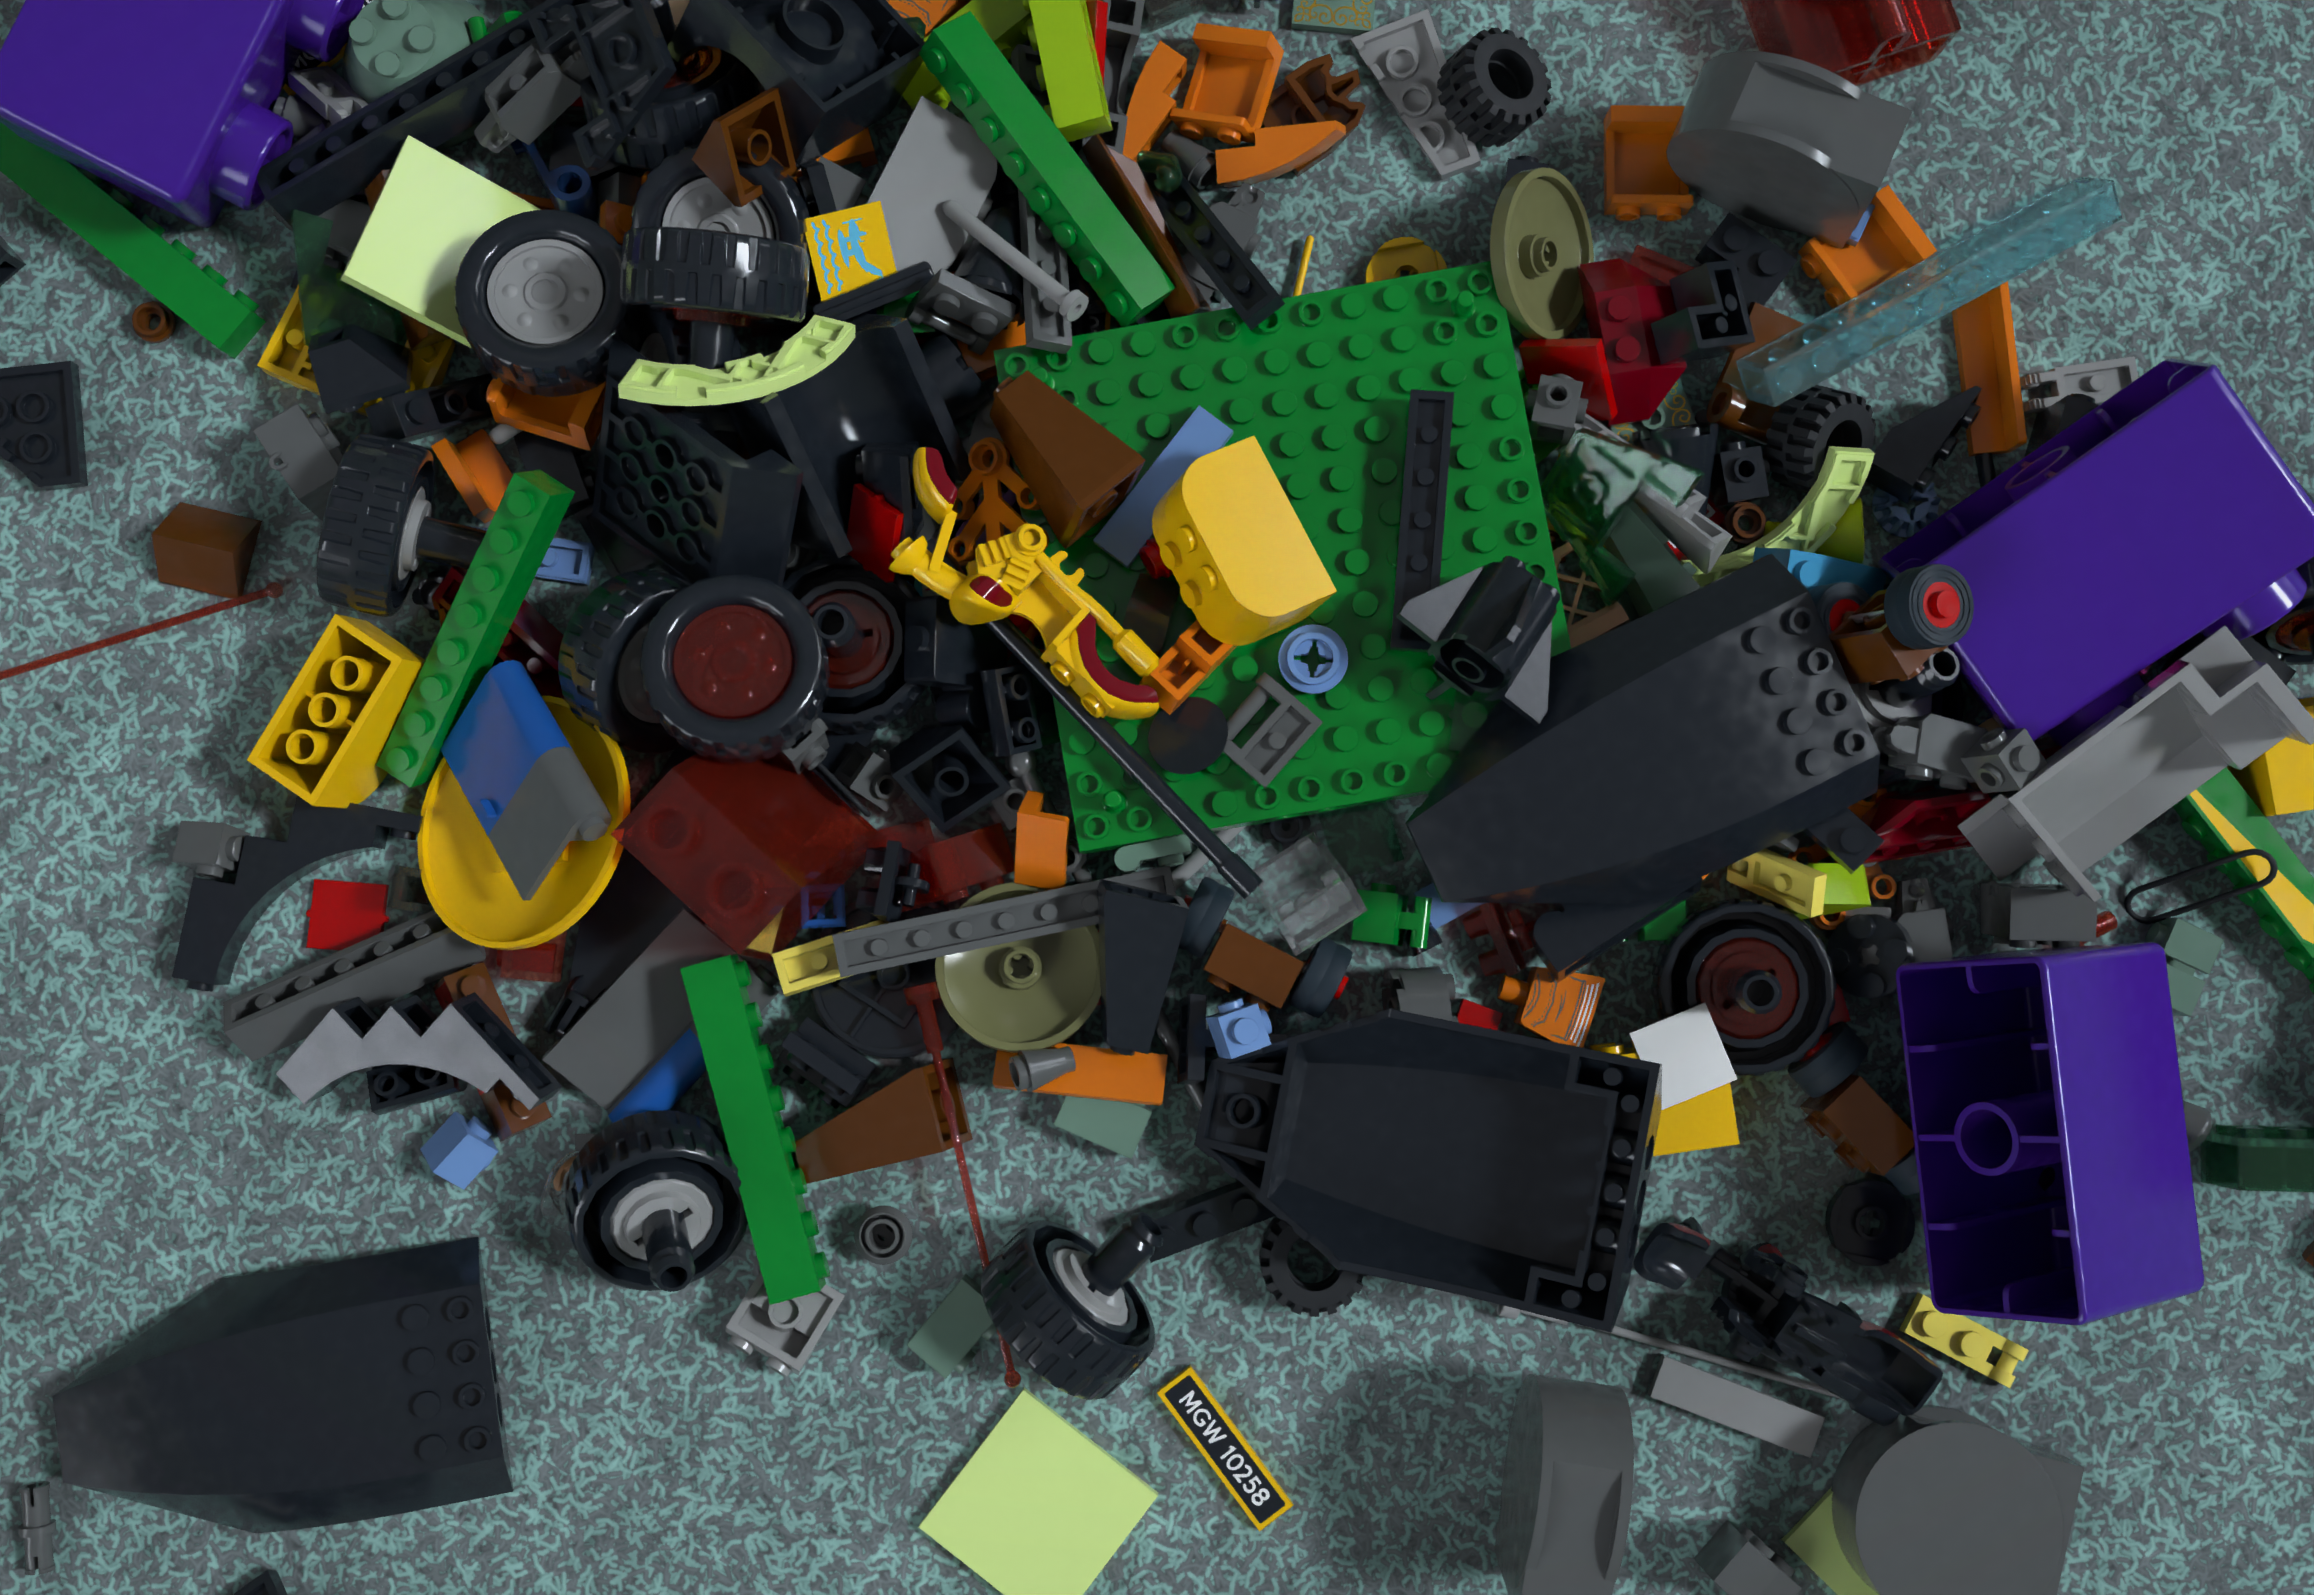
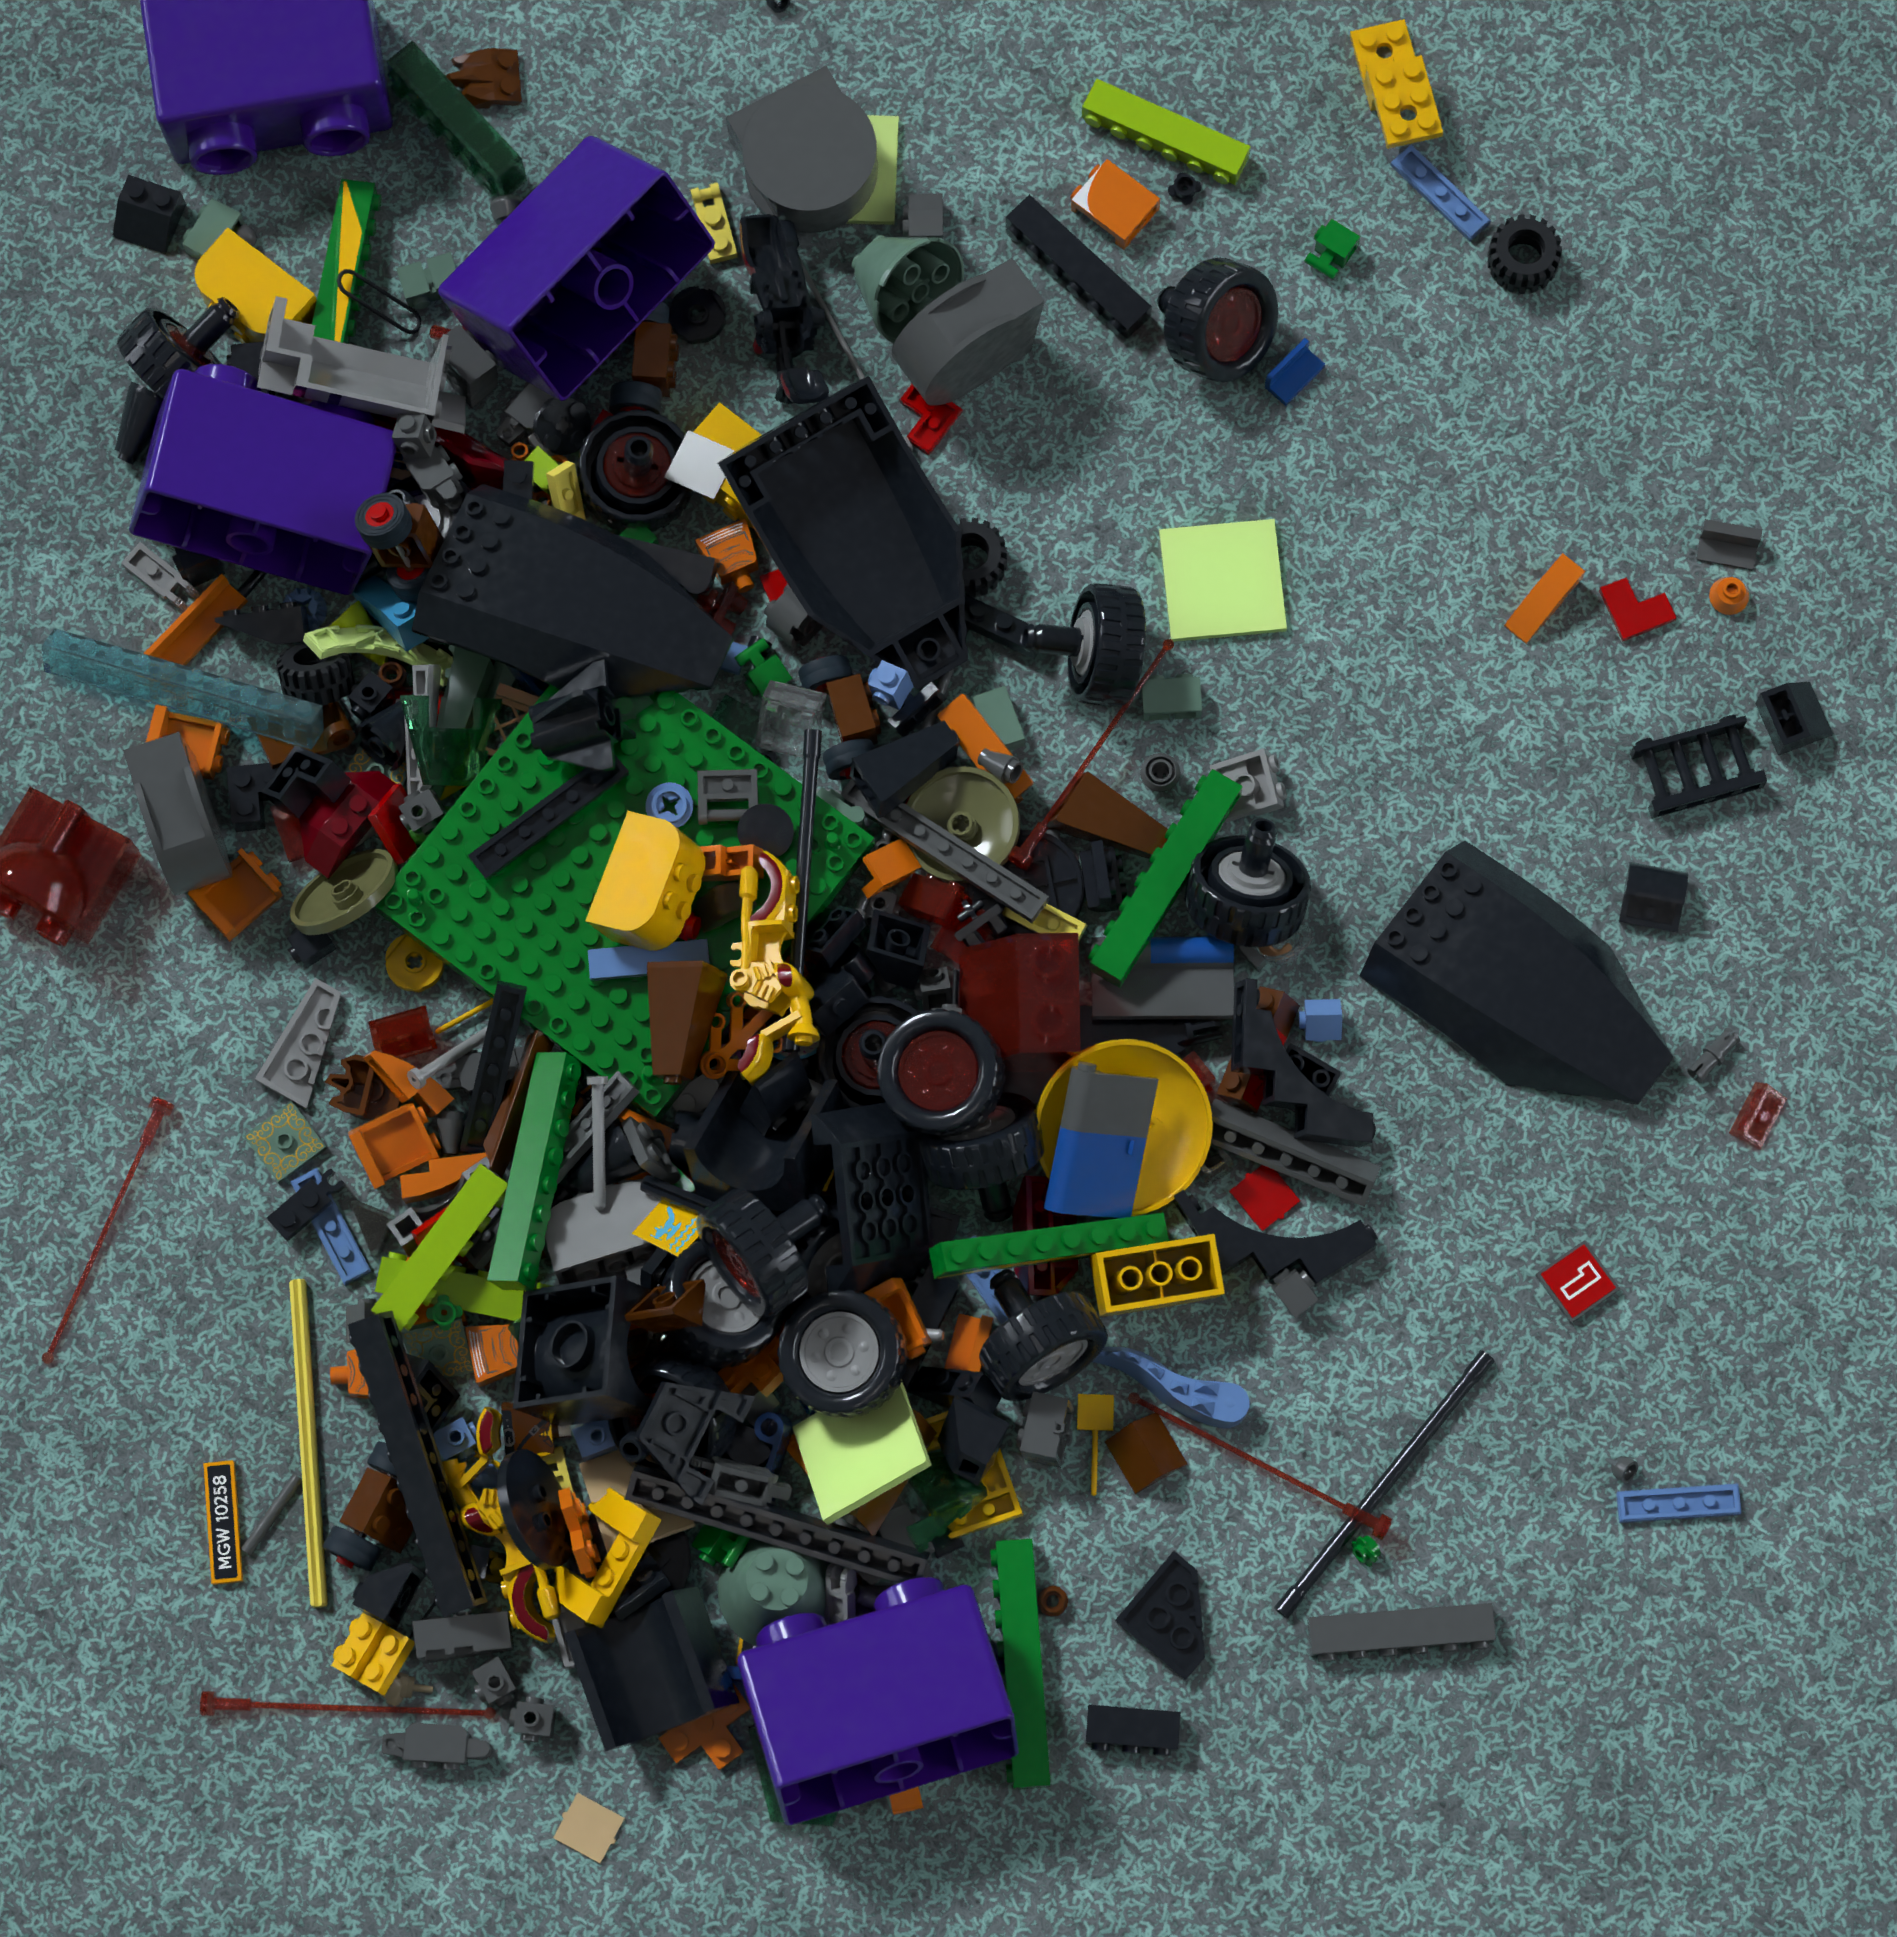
camera: 130 degrees left, 10 degrees down
(200, 654) = (1204, 1401): none -> medium blue animal
(295, 535) = (1096, 1414): none -> yellow piece
(741, 379) = (791, 1187): yellowish green tile -> none
(873, 531) = (805, 1081): red piece -> none
(1164, 166) = (471, 1129): clear green arm -> none
(1224, 1448) = (1105, 519): tile -> none
(1263, 208) = (418, 1077): none -> light grey bar
(1336, 194) = (404, 1033): none -> clear red brick
(1494, 87) = (274, 985): black tyre -> none
(1507, 1362) = (934, 420): none -> red tile
(1697, 1488) = (904, 277): none -> sand green cone
(1736, 1405) = (848, 300): light grey tile -> none

